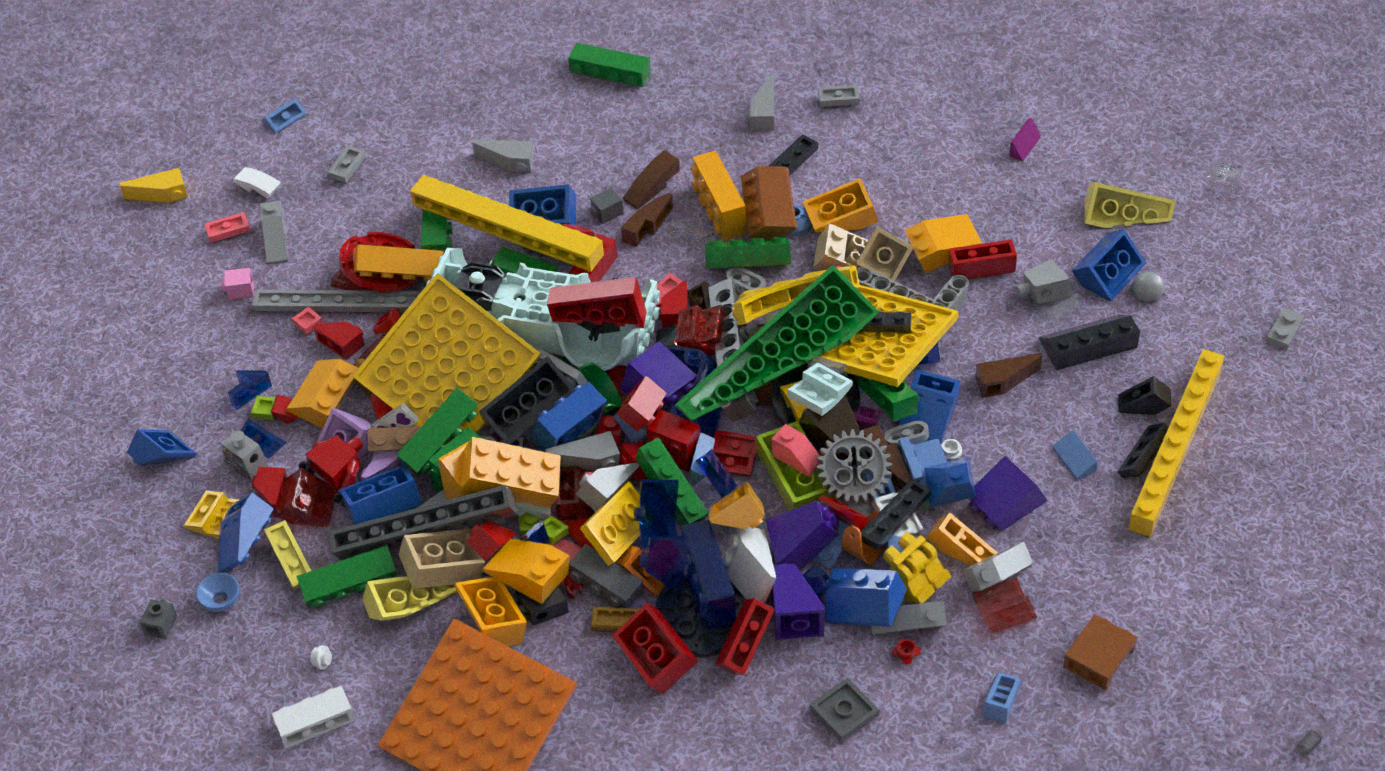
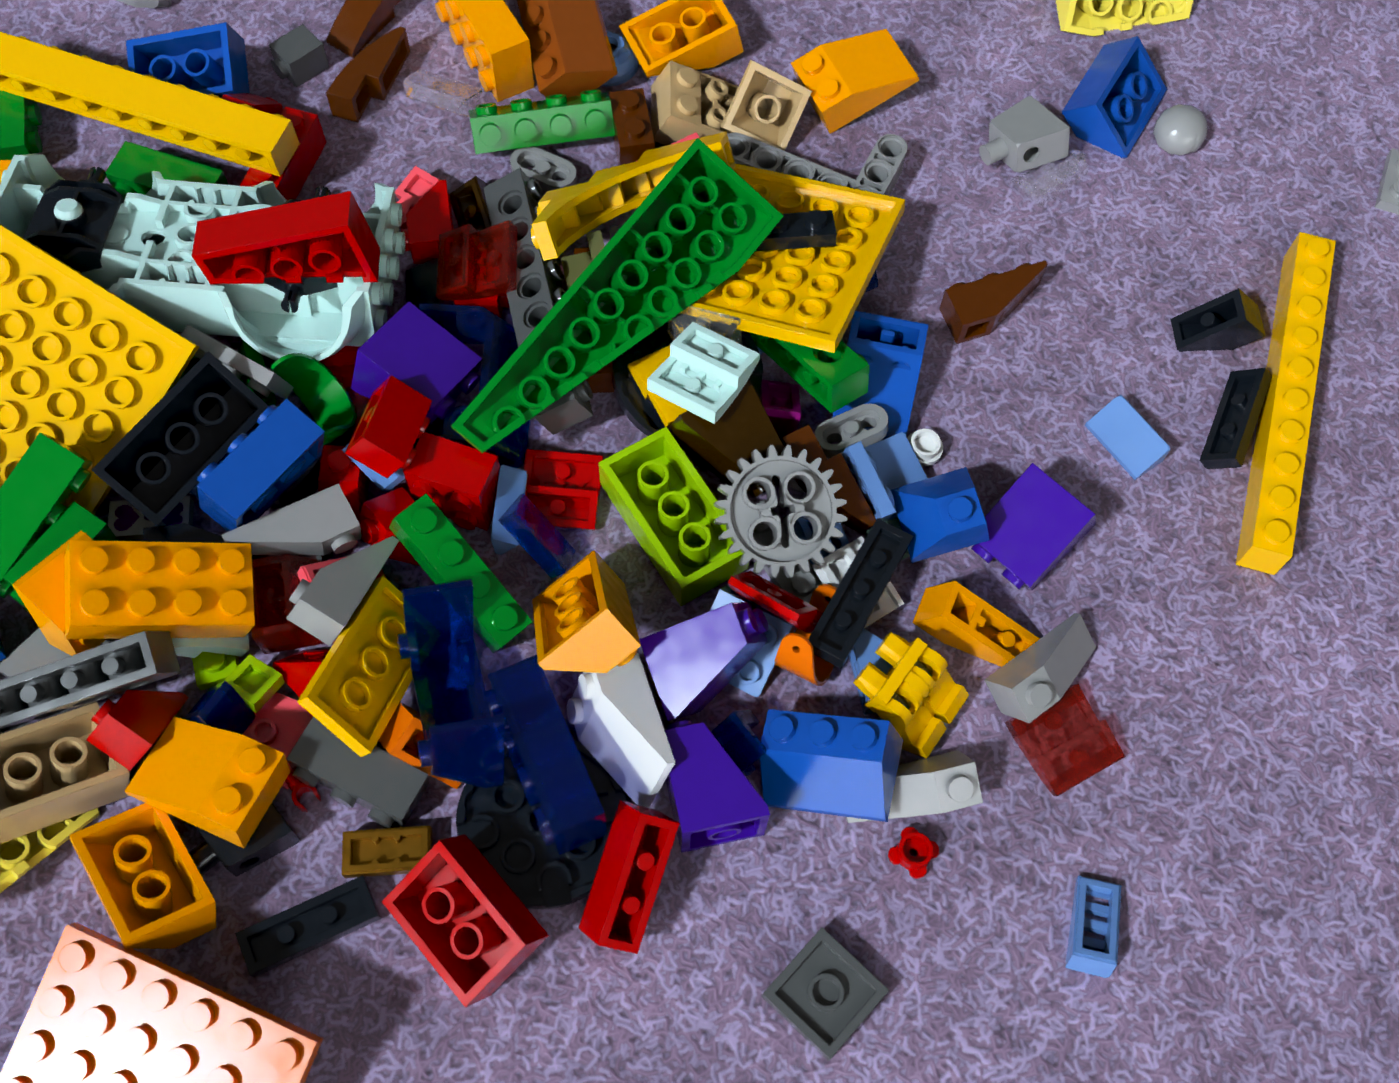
camera: 15 degrees left, 15 degrees up
(571, 648) = (307, 926): none -> black plate
(795, 450) = (673, 489): coral slope -> none
(801, 257) = (631, 125): none -> reddish brown brick
(983, 259) = (921, 104): red brick -> none
(1091, 341) = (1112, 228): black slope -> none
(1099, 651) = (1249, 818): dark orange panel -> none

